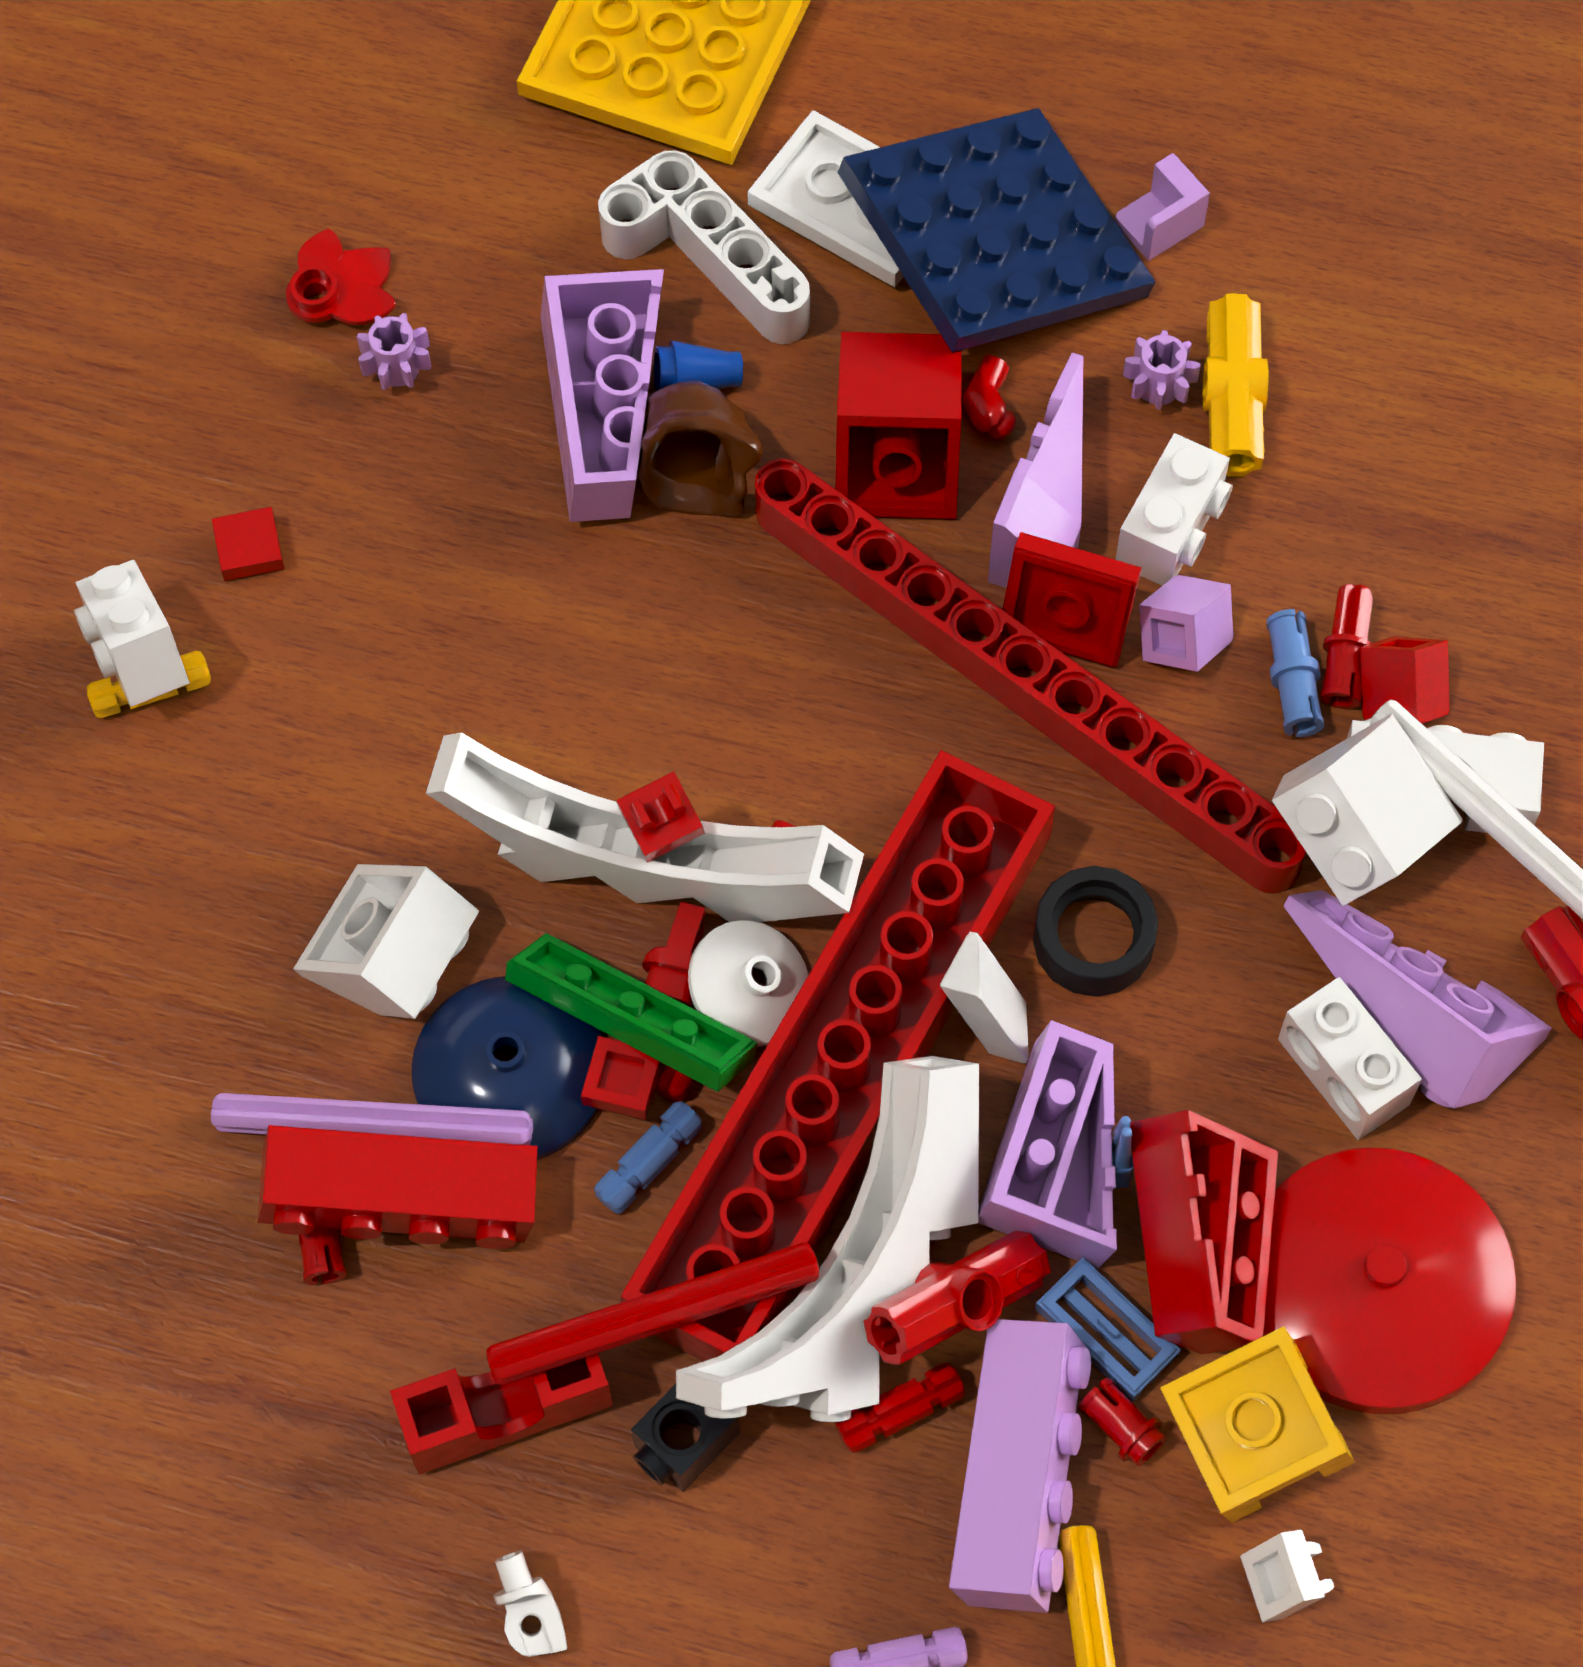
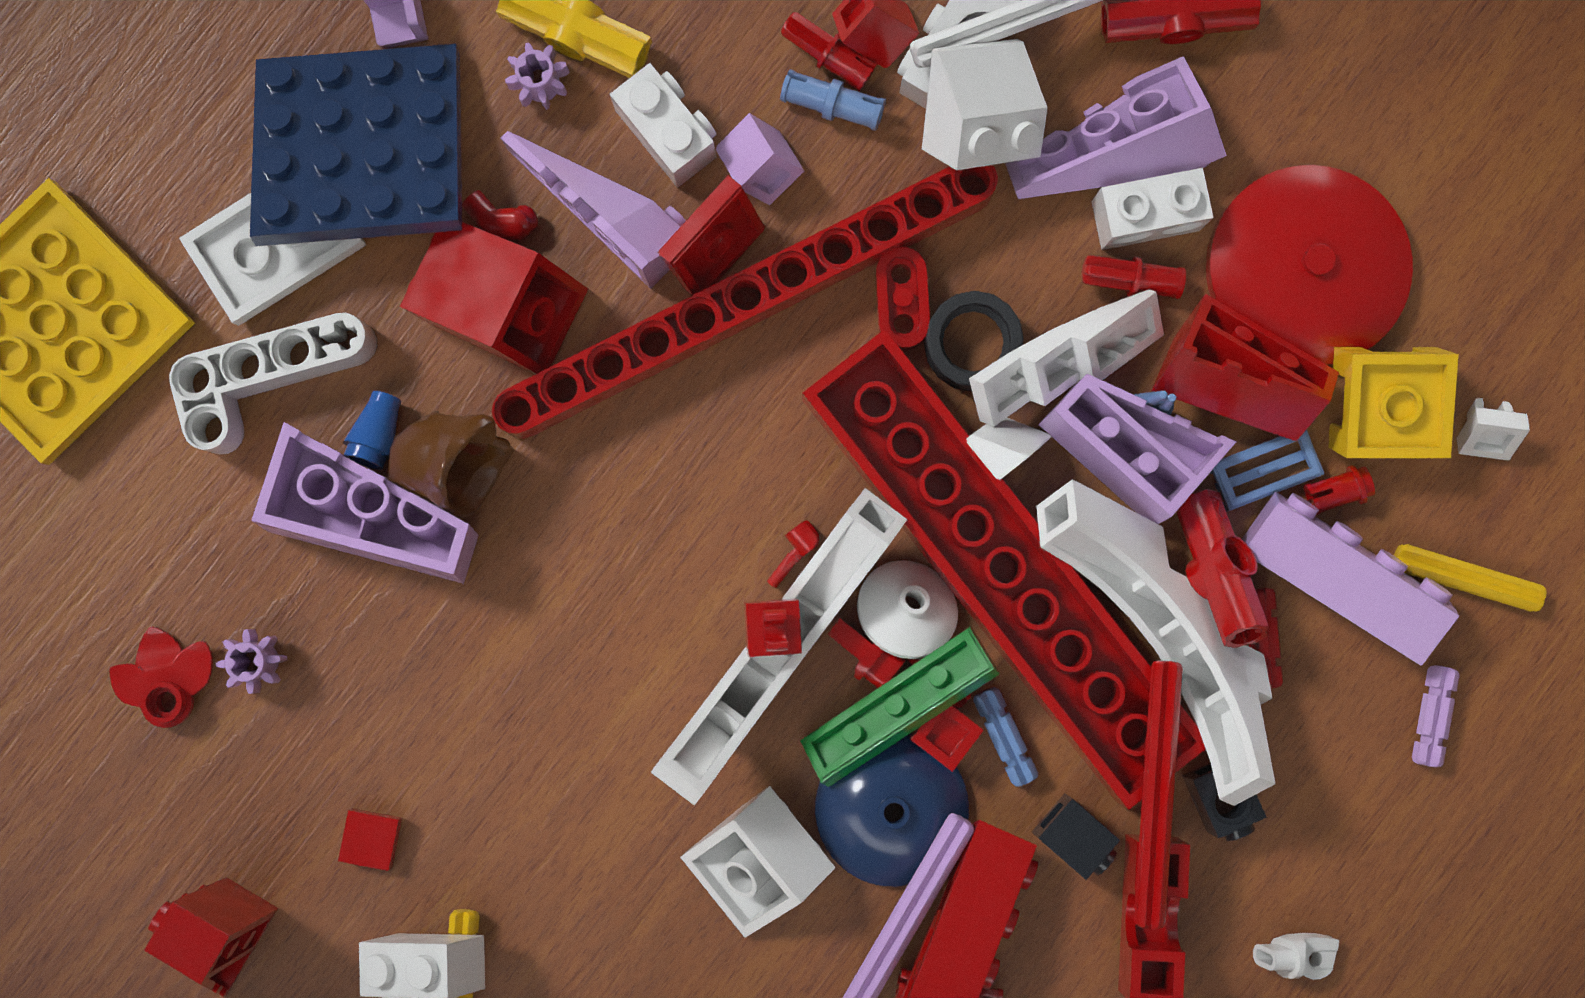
camera: 65 degrees left, 20 degrees up
(85, 414) = (210, 933): none -> red wedge
(562, 1275) = (1077, 837): none -> black brick
(1101, 832) = (904, 299): none -> red plate
(1148, 1047) = (1063, 356): none -> white slope
(1261, 1077) = (1133, 276): none -> red axle

